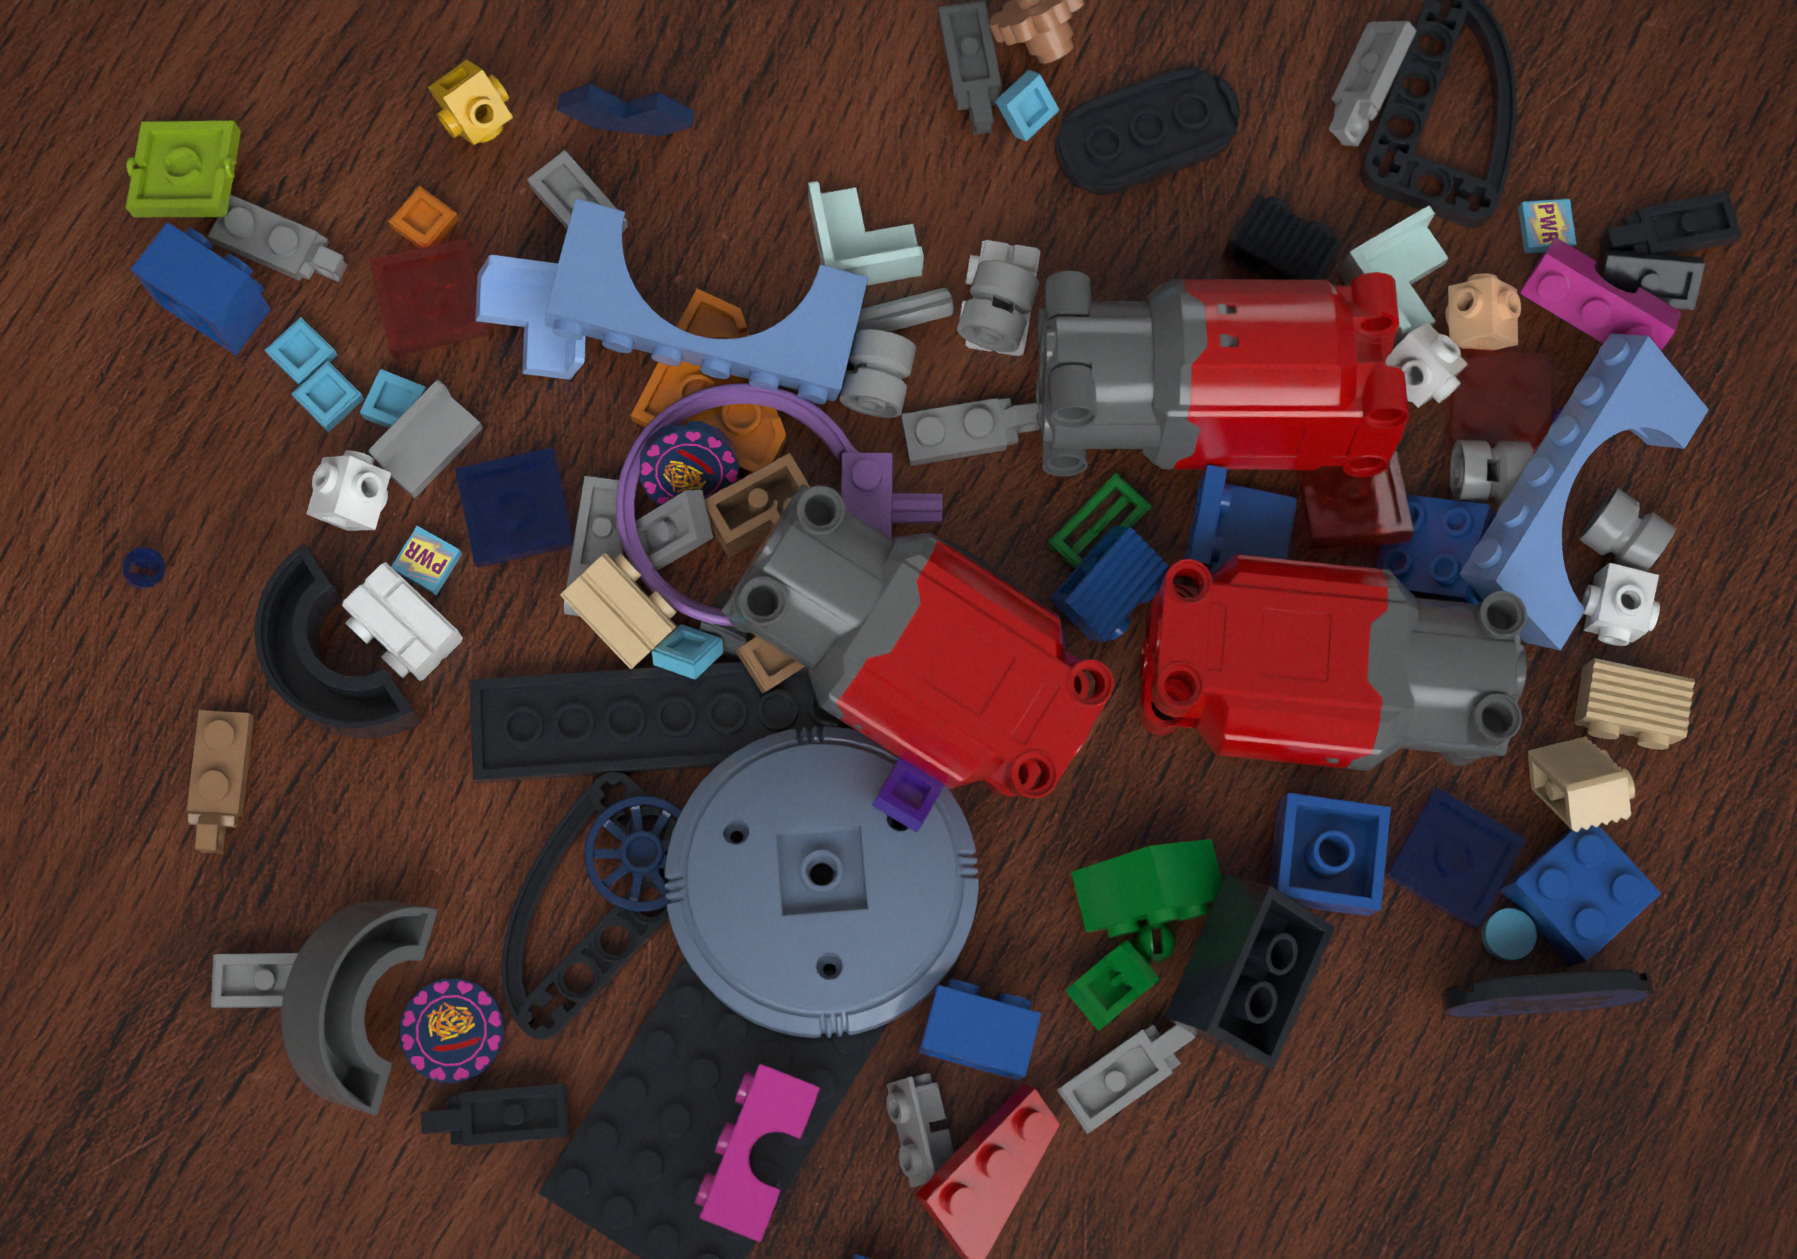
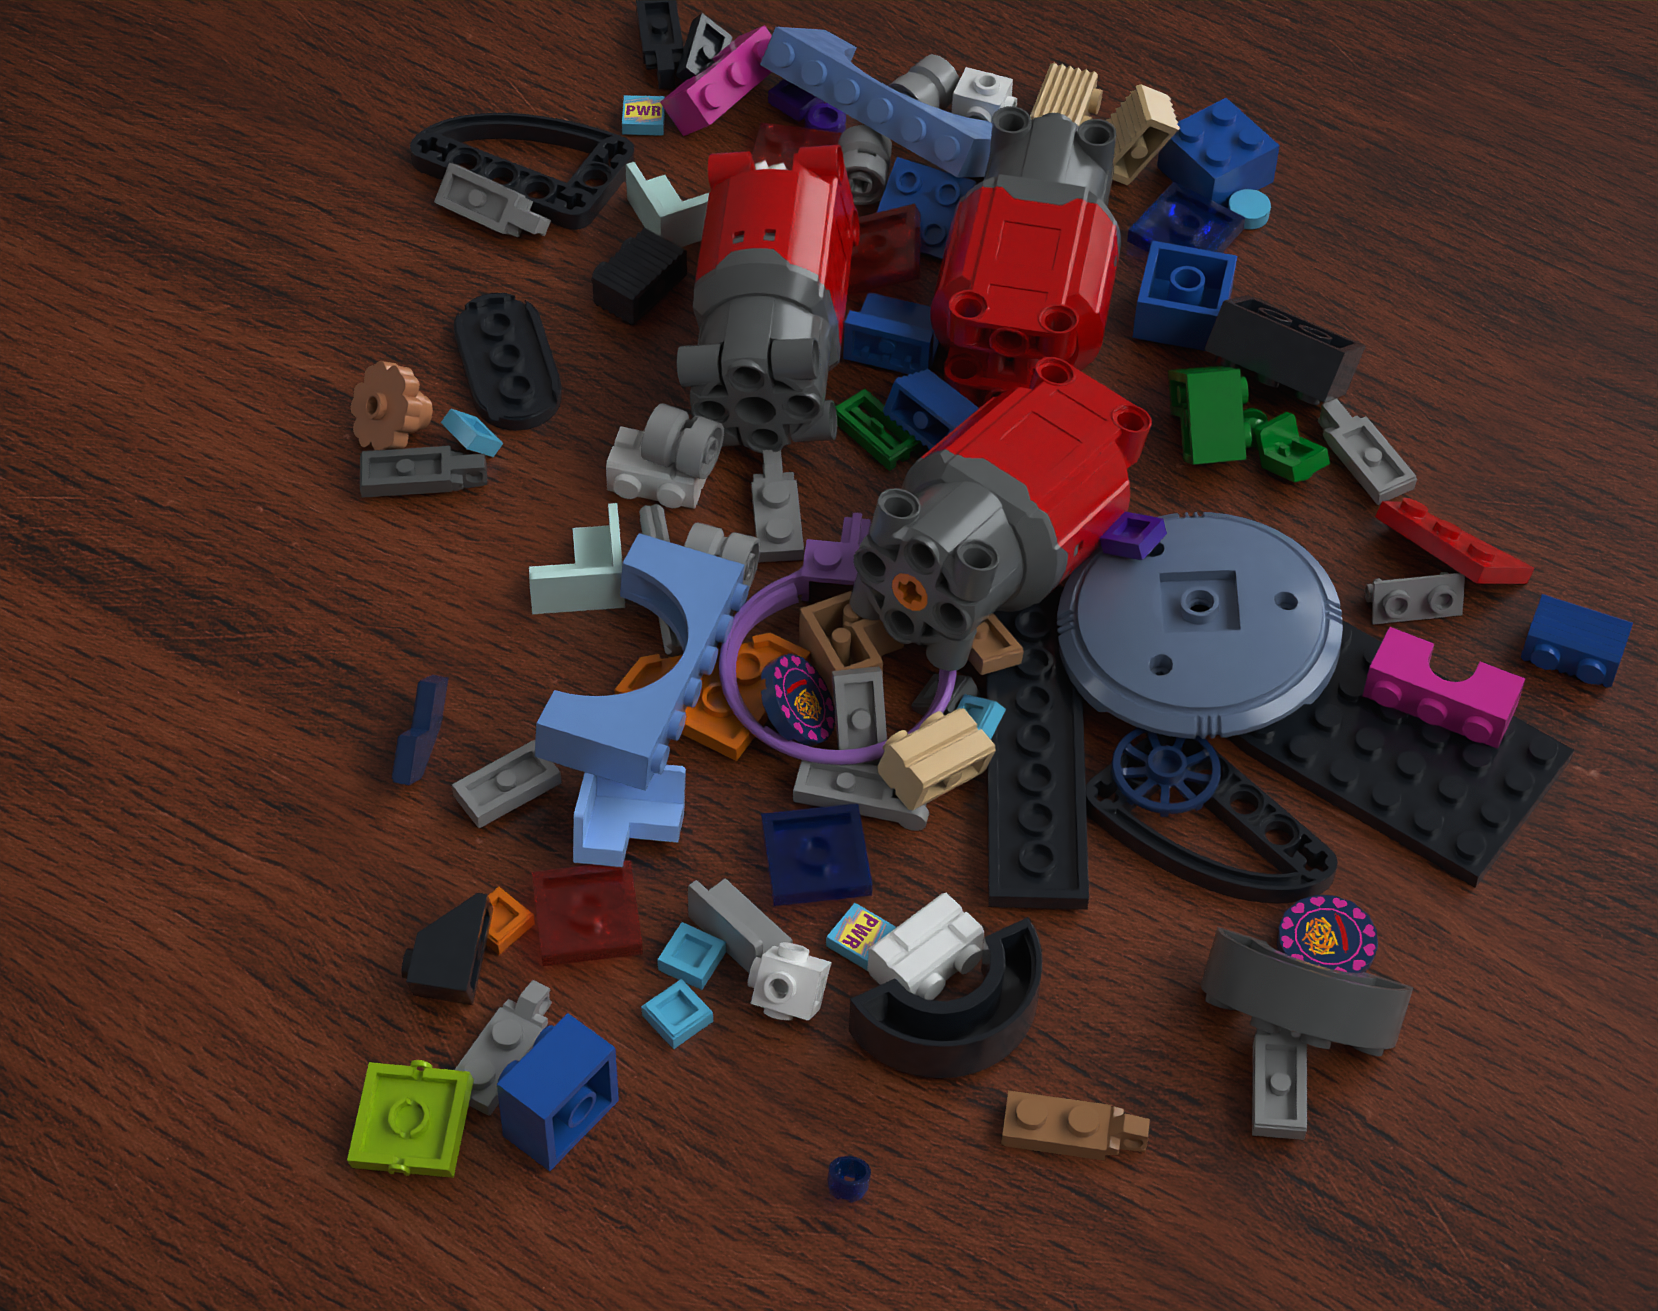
camera: 80 degrees left, 25 degrees down
(300, 351) = (629, 1033): medium azure tile -> none
(358, 177) = (450, 953): none -> black slope
(471, 103) = (388, 854): yellow brick -> none
(503, 1116) = (1408, 901): black hinge -> none
(980, 1030) = (1338, 521): blue brick -> none
(1483, 313) = (711, 138): light nougat brick -> none
(1548, 993) = (1303, 177): black tile -> none

